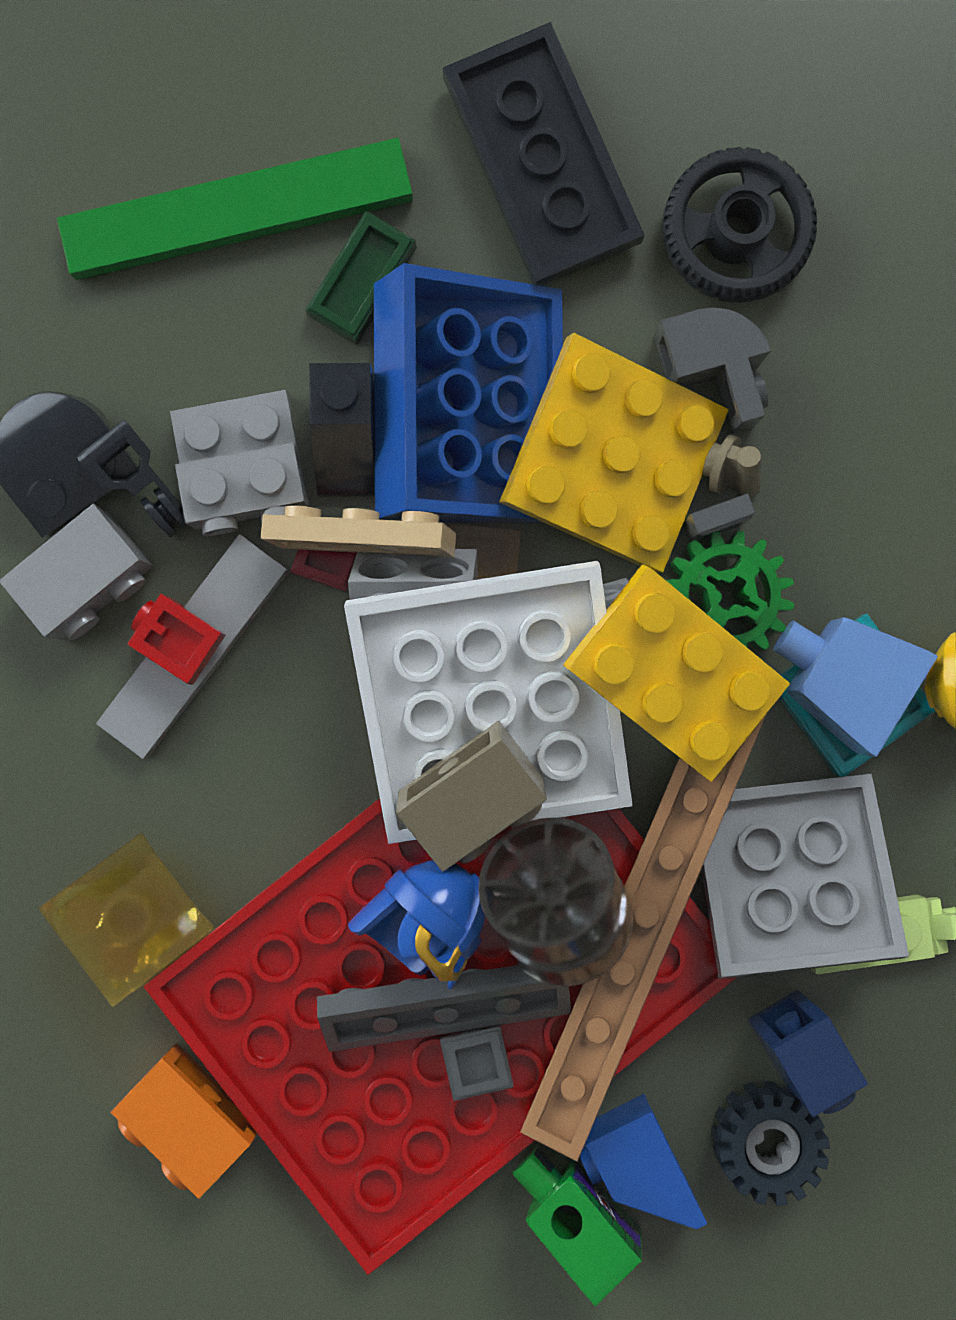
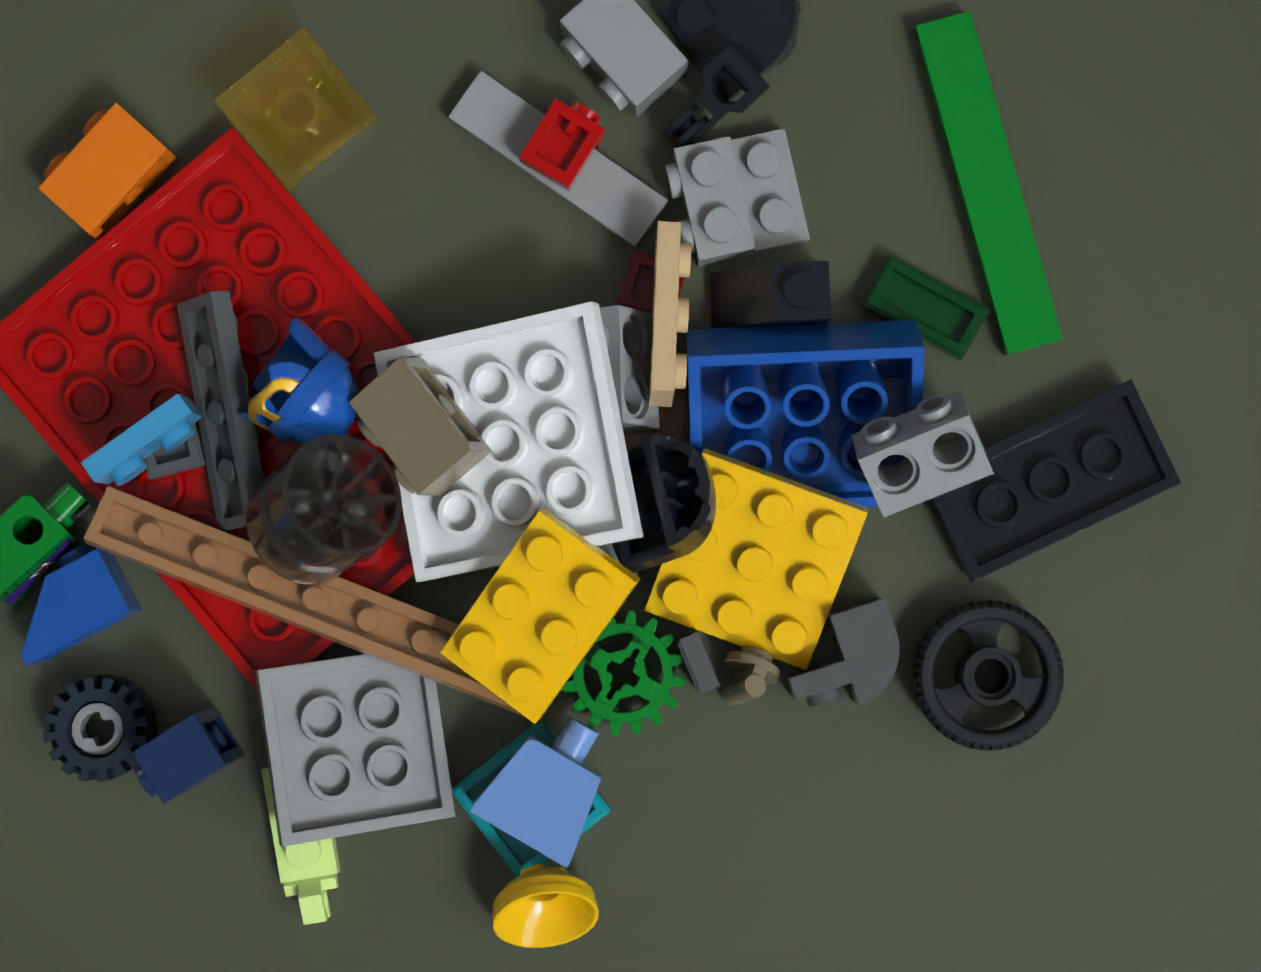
camera: 90 degrees right, 0 degrees up
(489, 1114) = (124, 455): none -> dark azure plate
(523, 271) = (927, 466): none -> light grey brick
(552, 530) = (672, 499): none -> black slope

